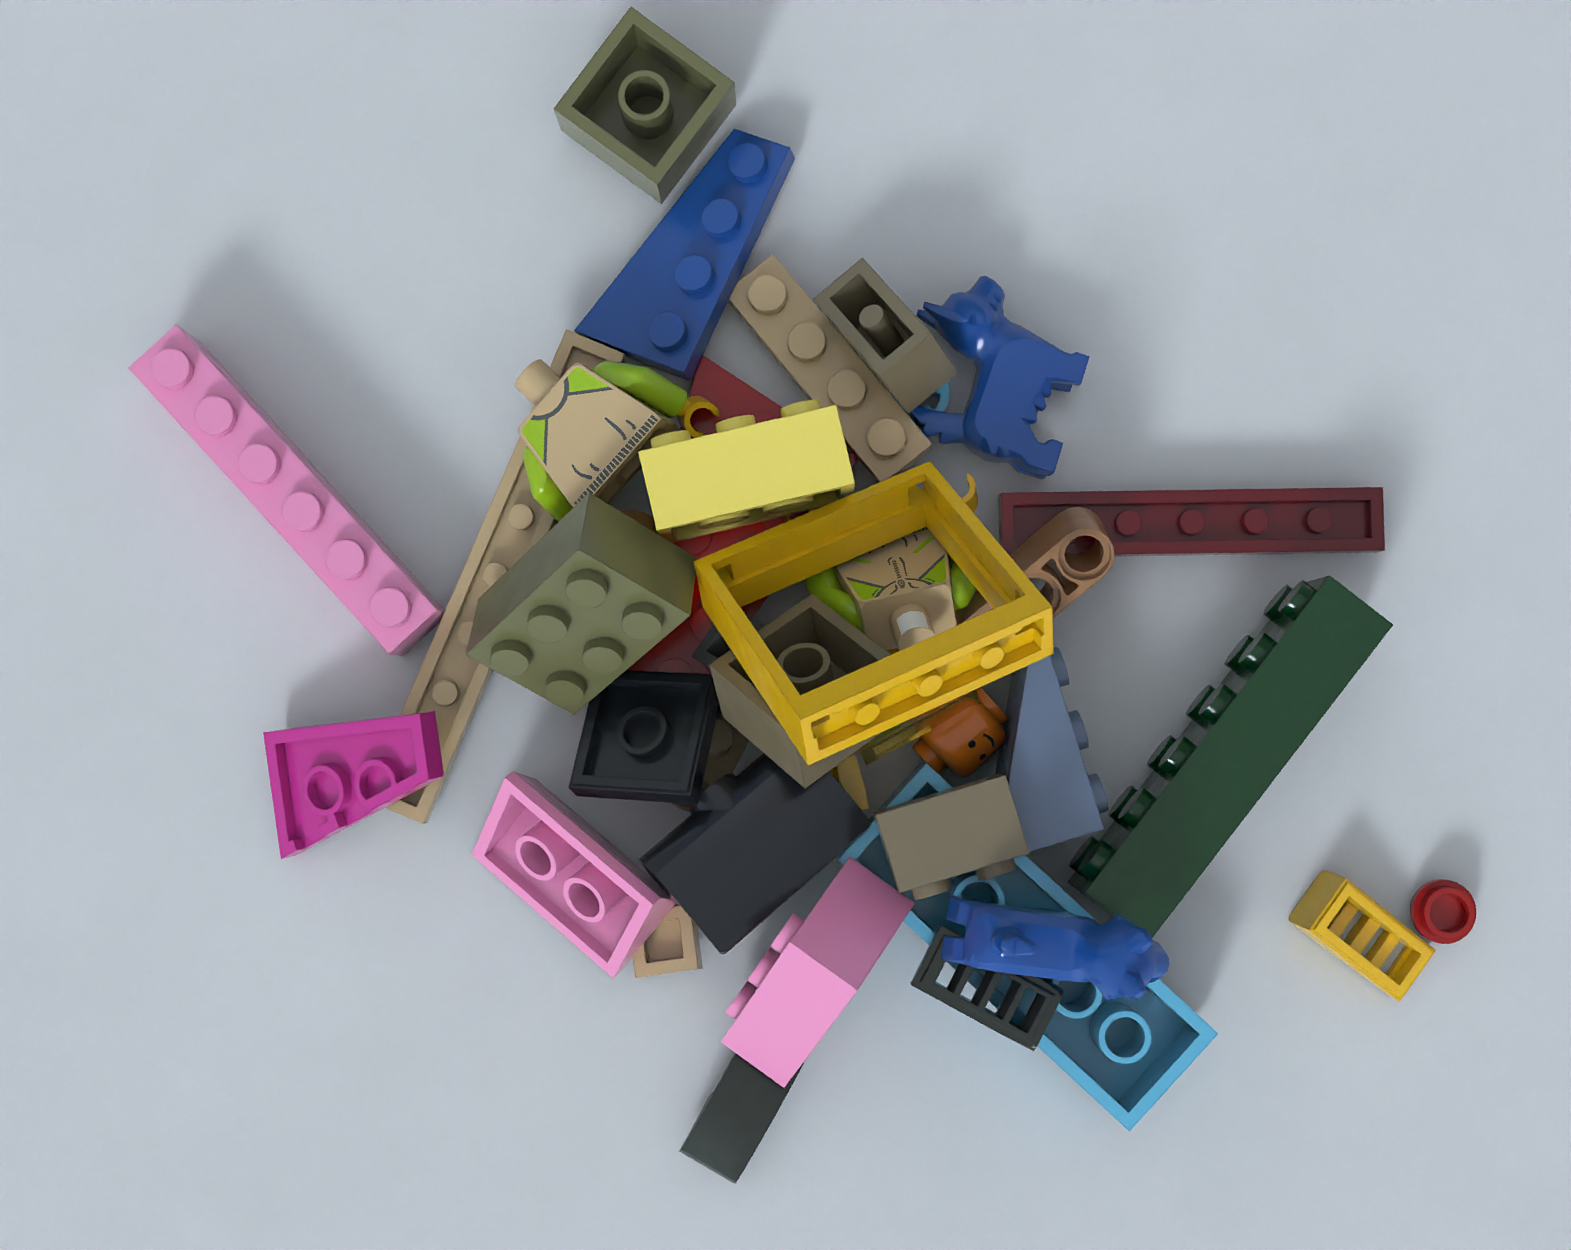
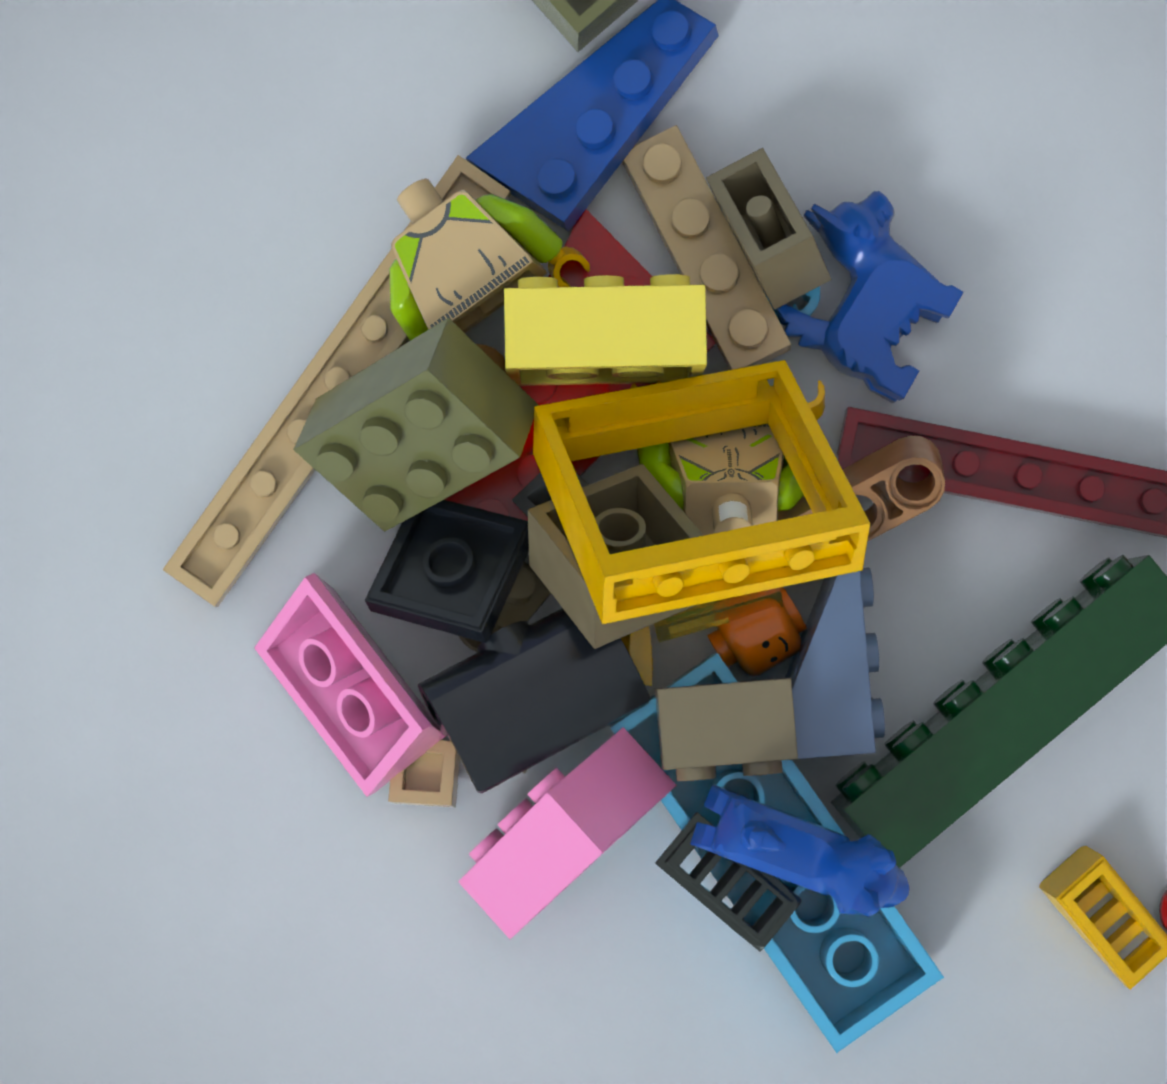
camera: 10 degrees right, 0 degrees up
(288, 491) = (154, 254): bright pink brick -> none
(346, 772) = (151, 540): dark pink wing -> none
(735, 1119) = (456, 960): pearl dark grey slope -> none

